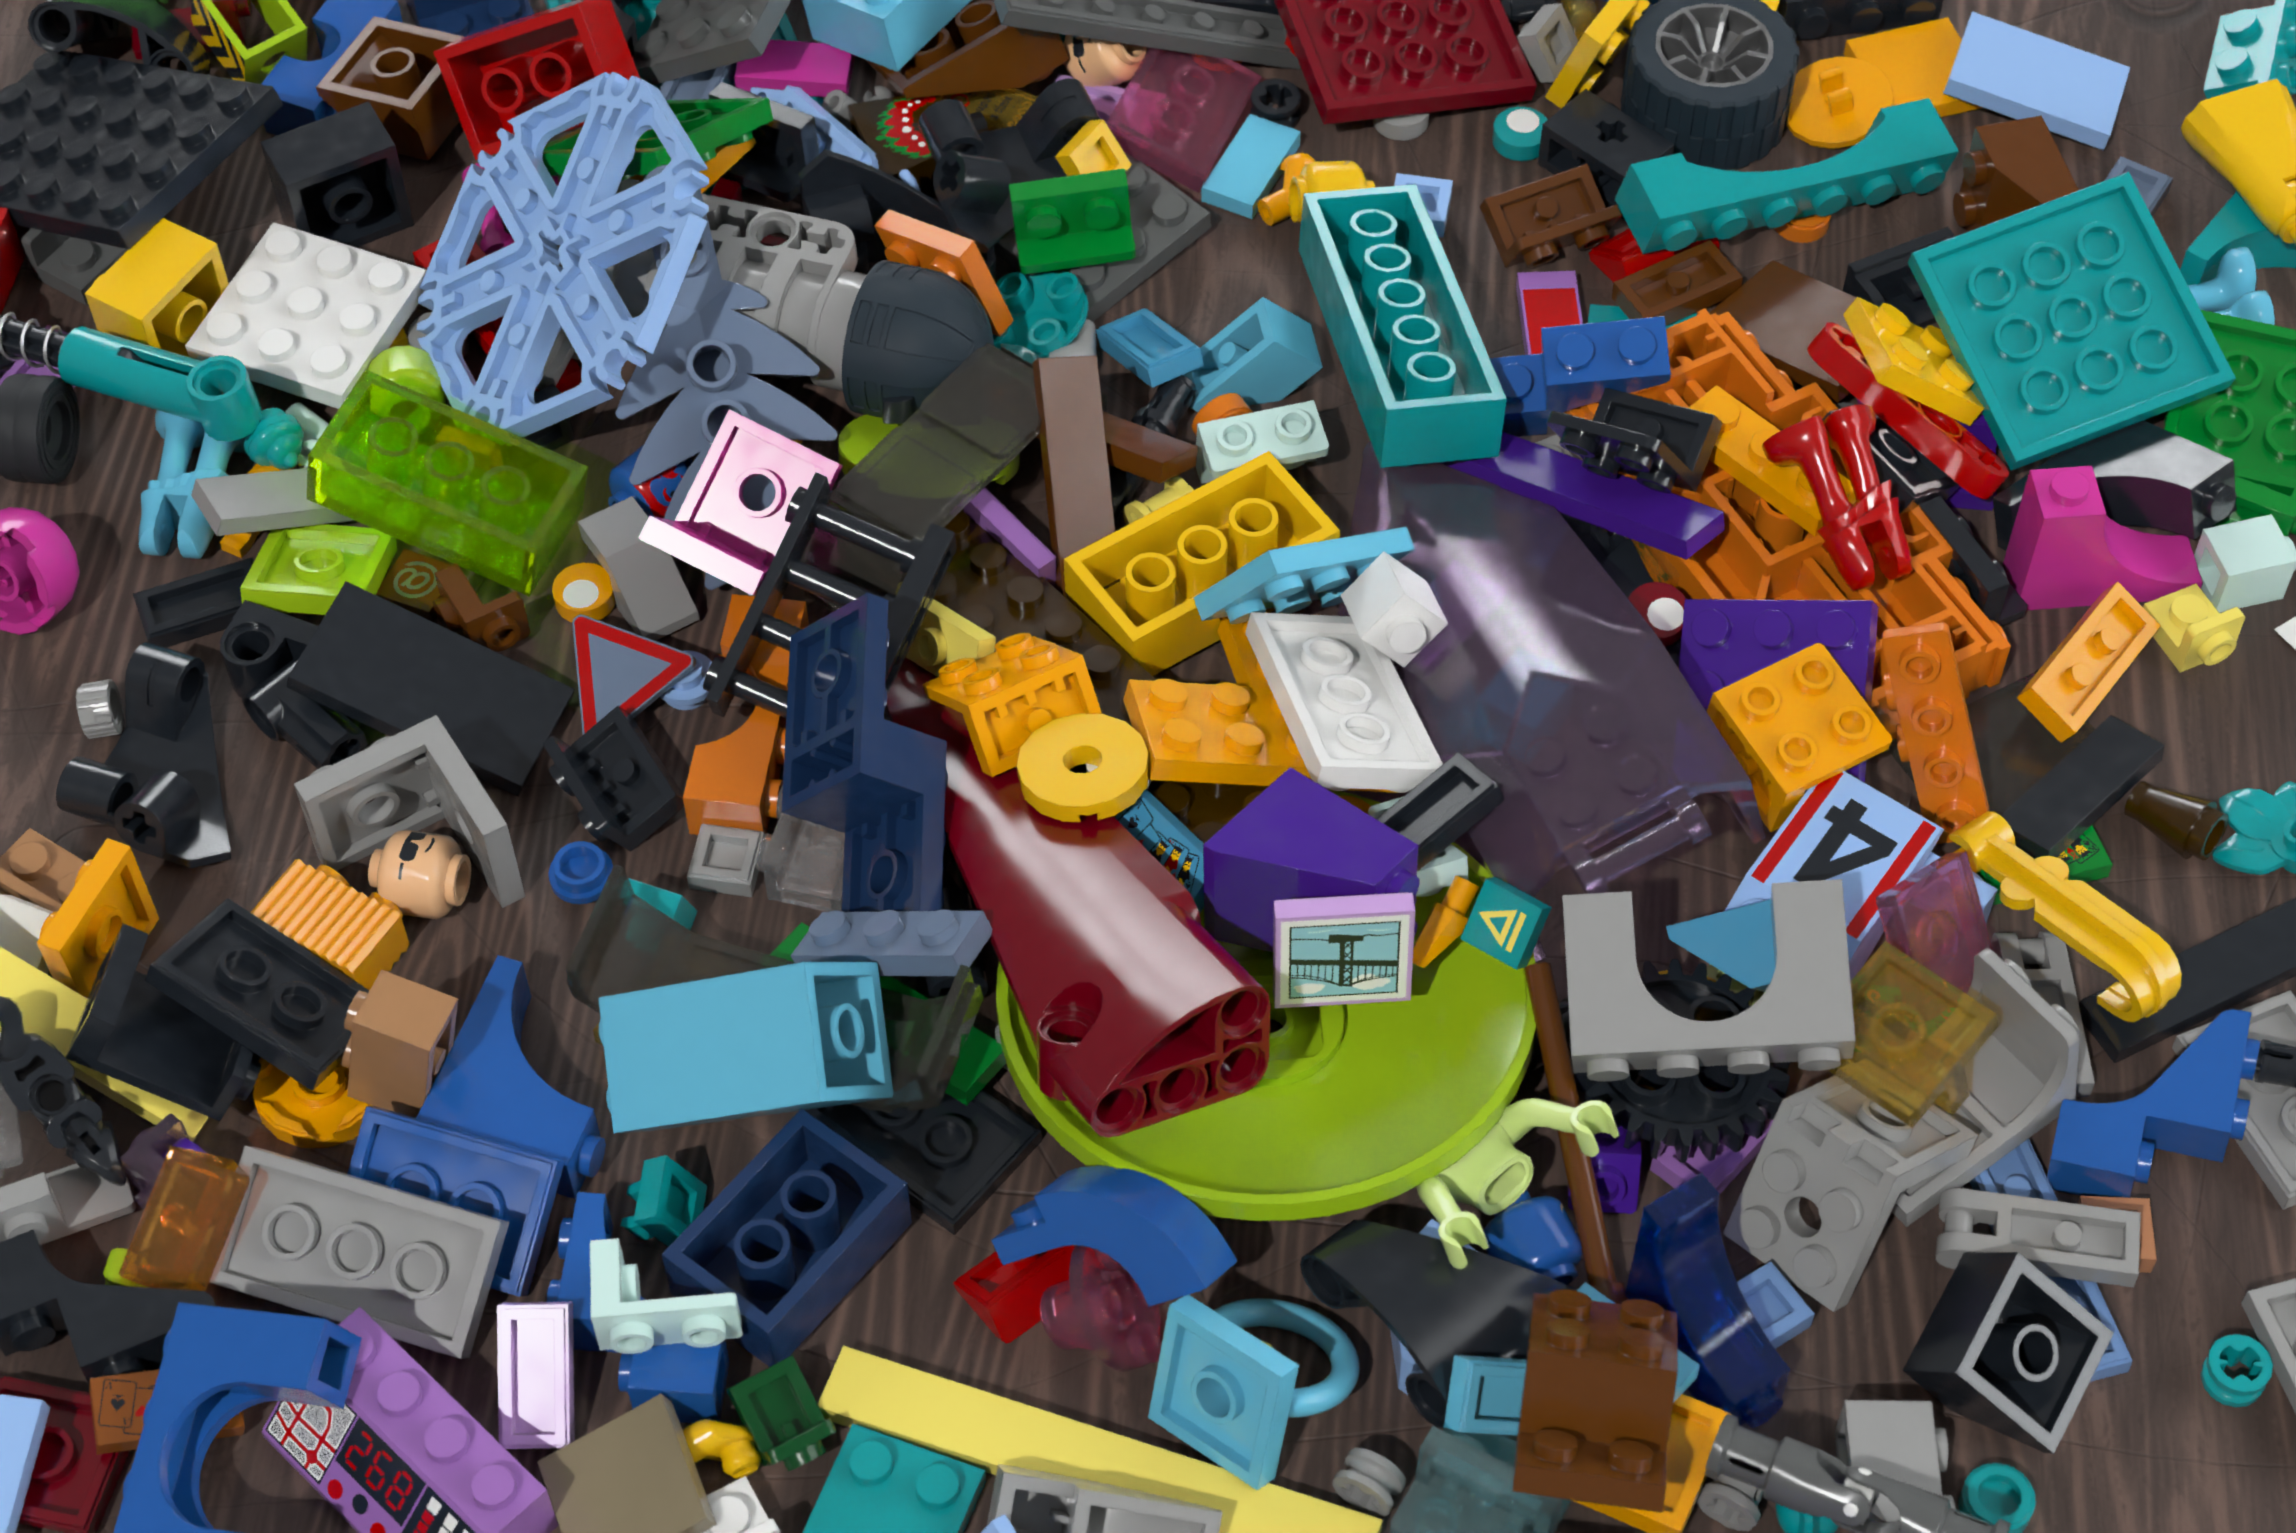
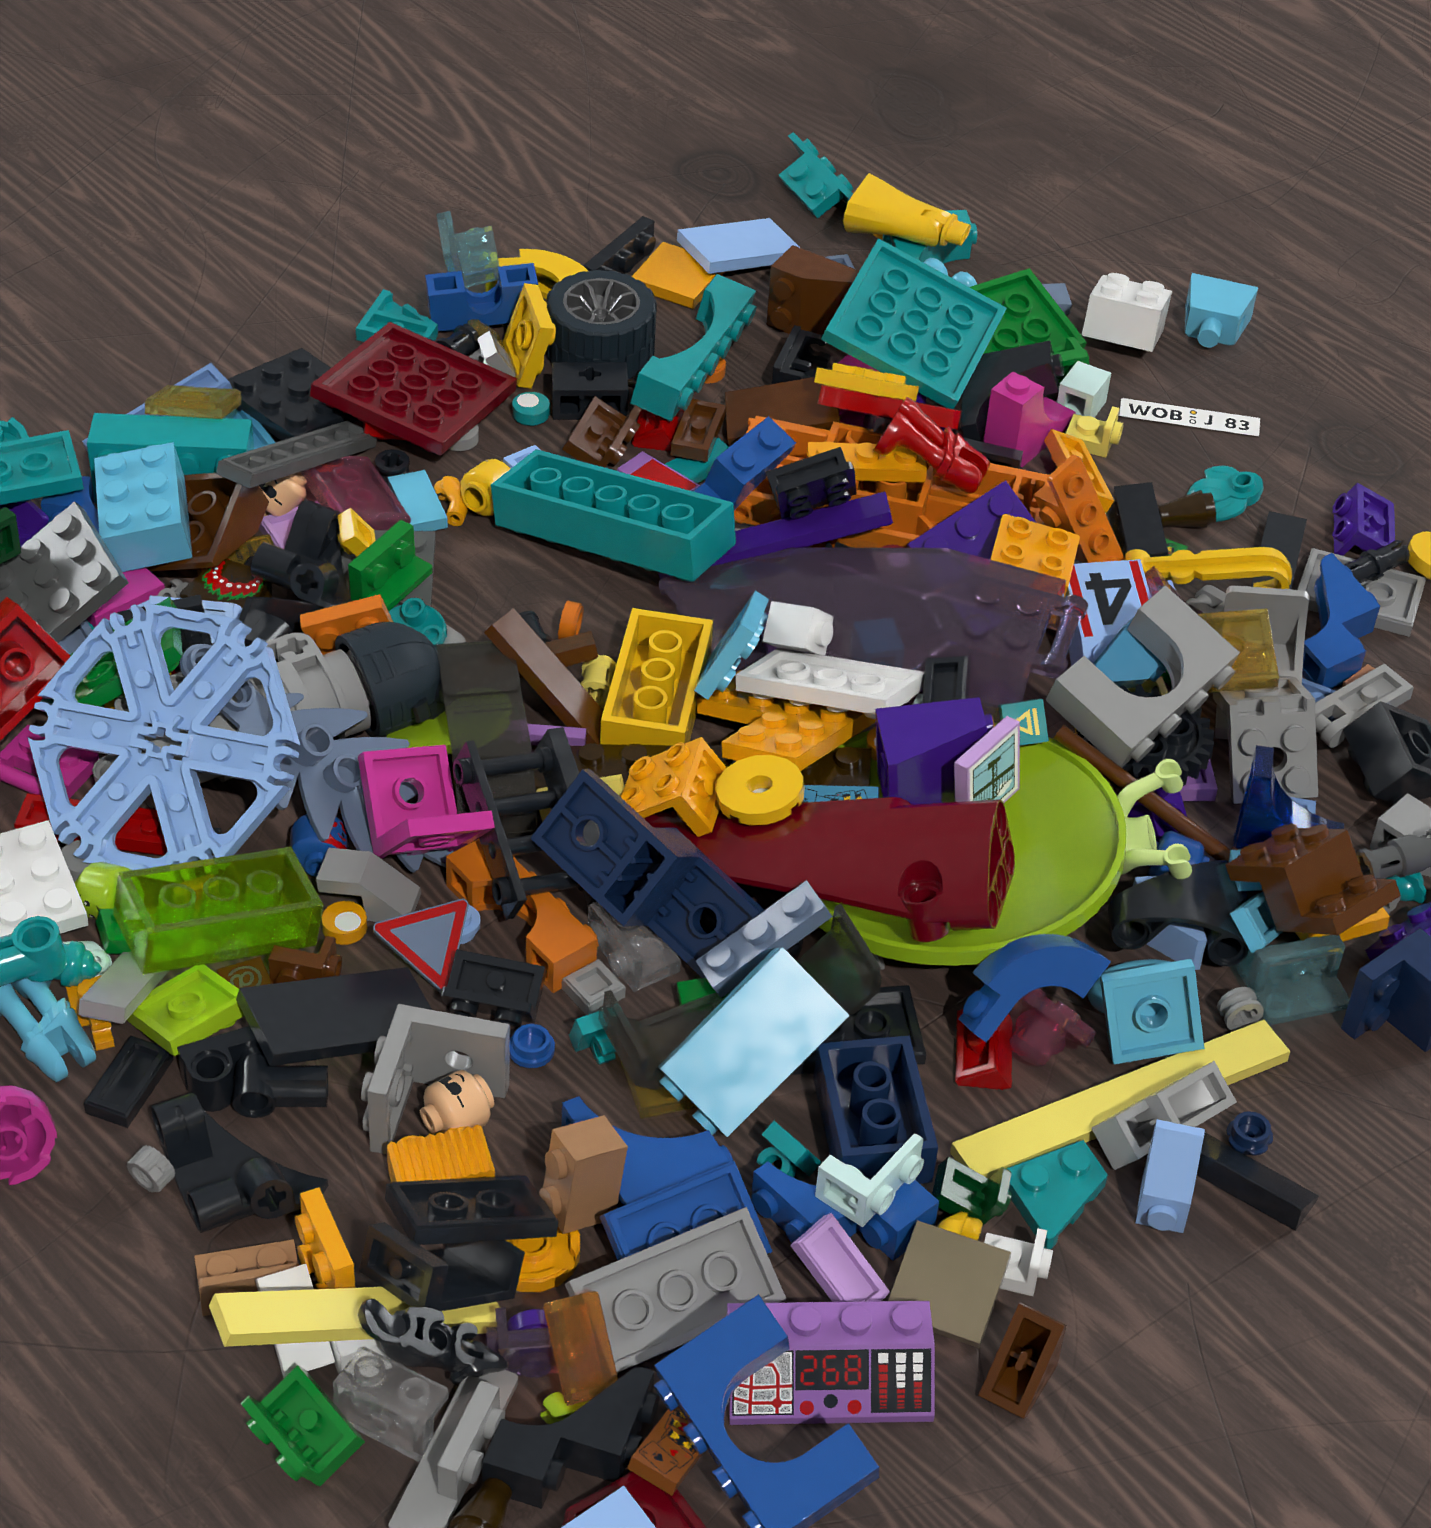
camera: 50 degrees left, 10 degrees down
(1149, 347) = (482, 610): dark azure tile -> none
(1257, 356) = (548, 583): medium azure slope -> none
(1289, 432) = (612, 610): light aqua bracket -> none
(1837, 101) = (674, 306): light orange piece -> none

